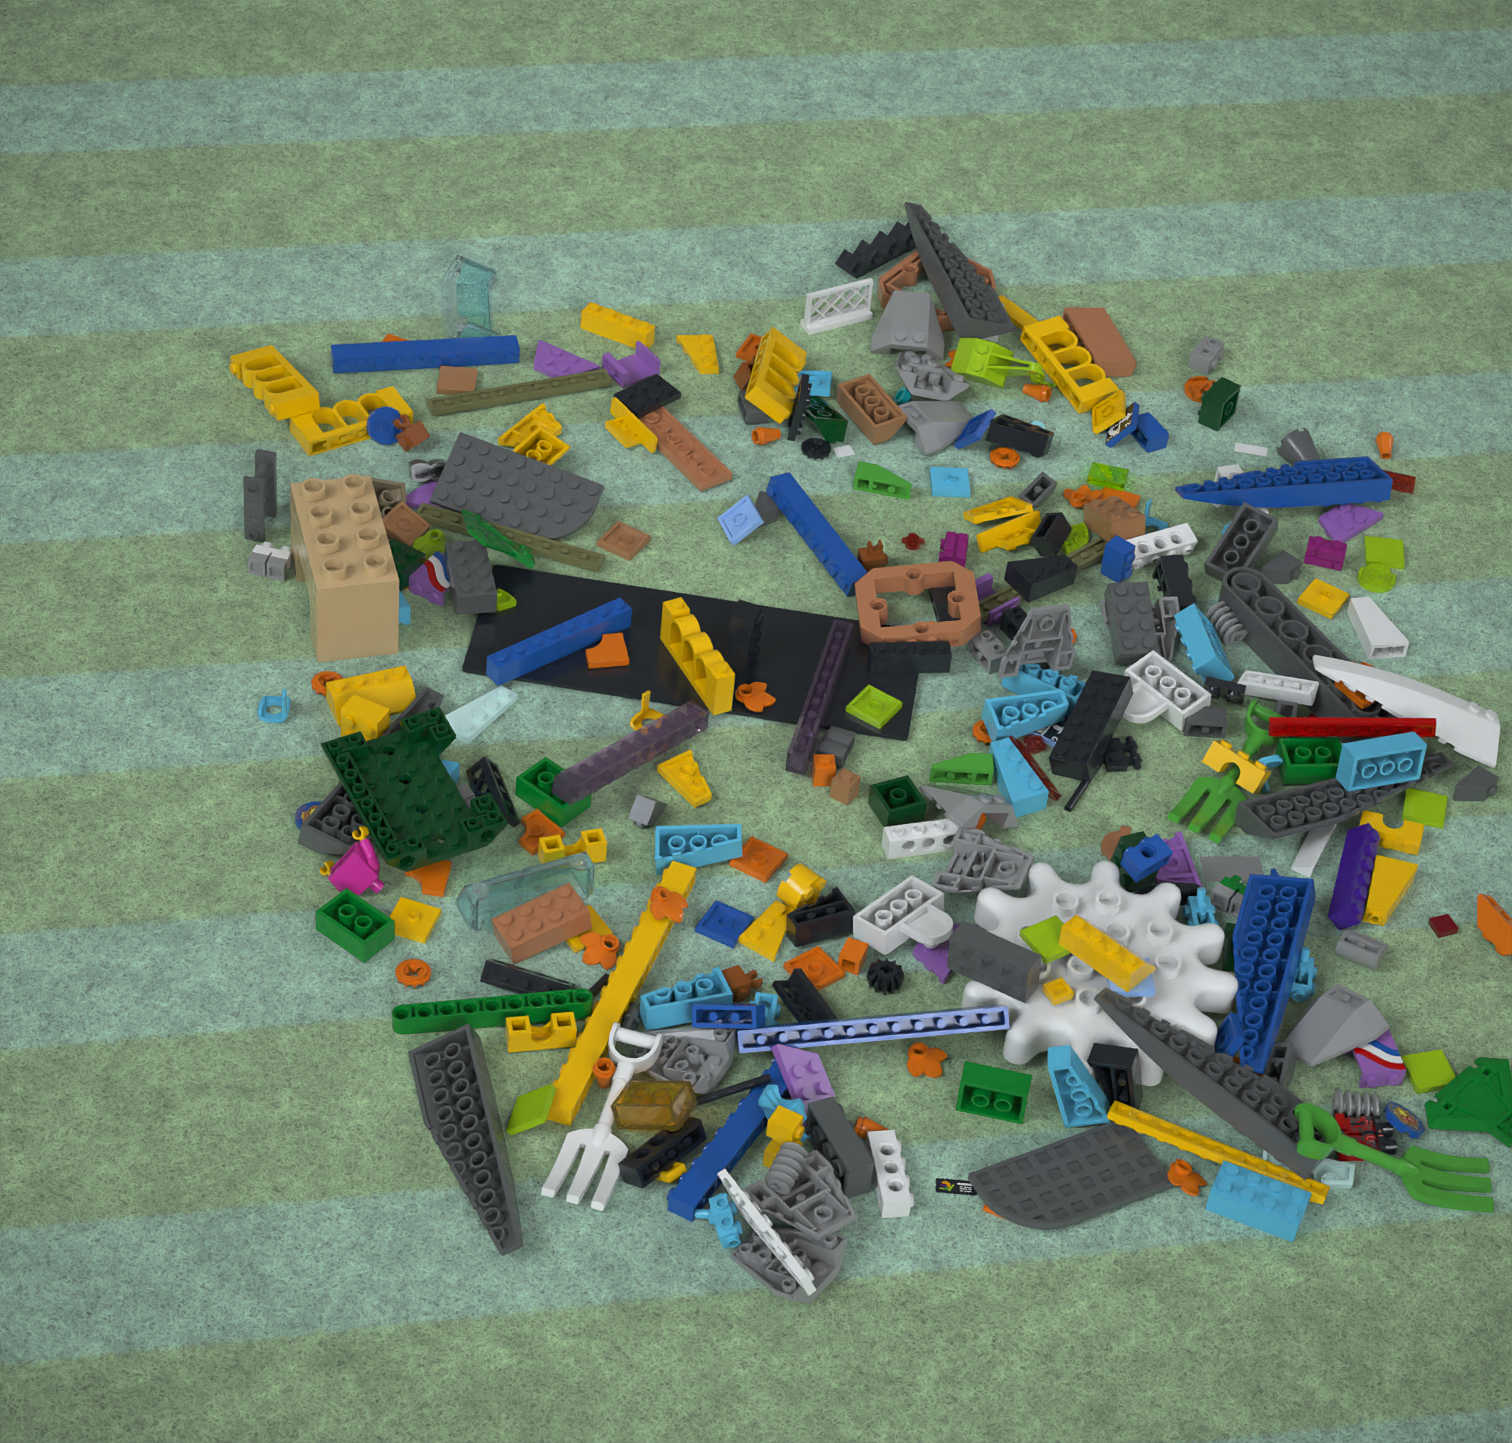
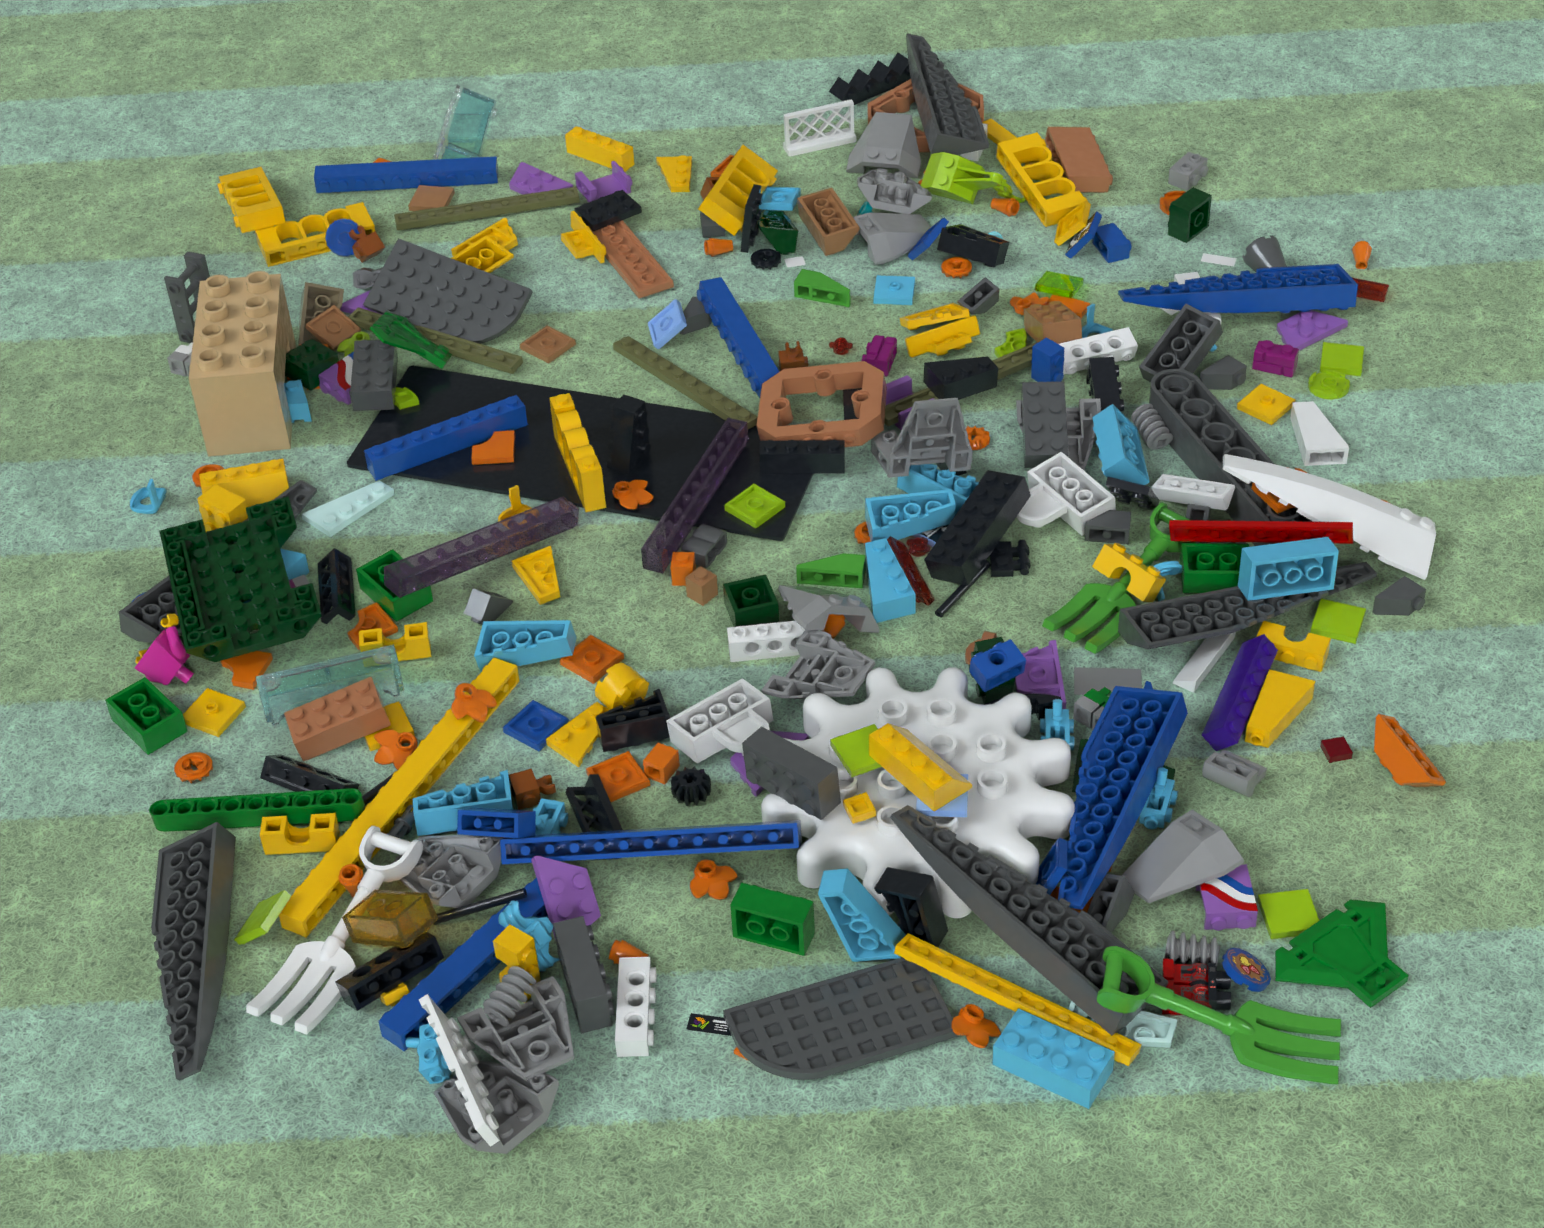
camera: 15 degrees right, 0 degrees up
(770, 580) = (683, 381): none -> olive plate
(1051, 534) = (983, 337): black brick -> none

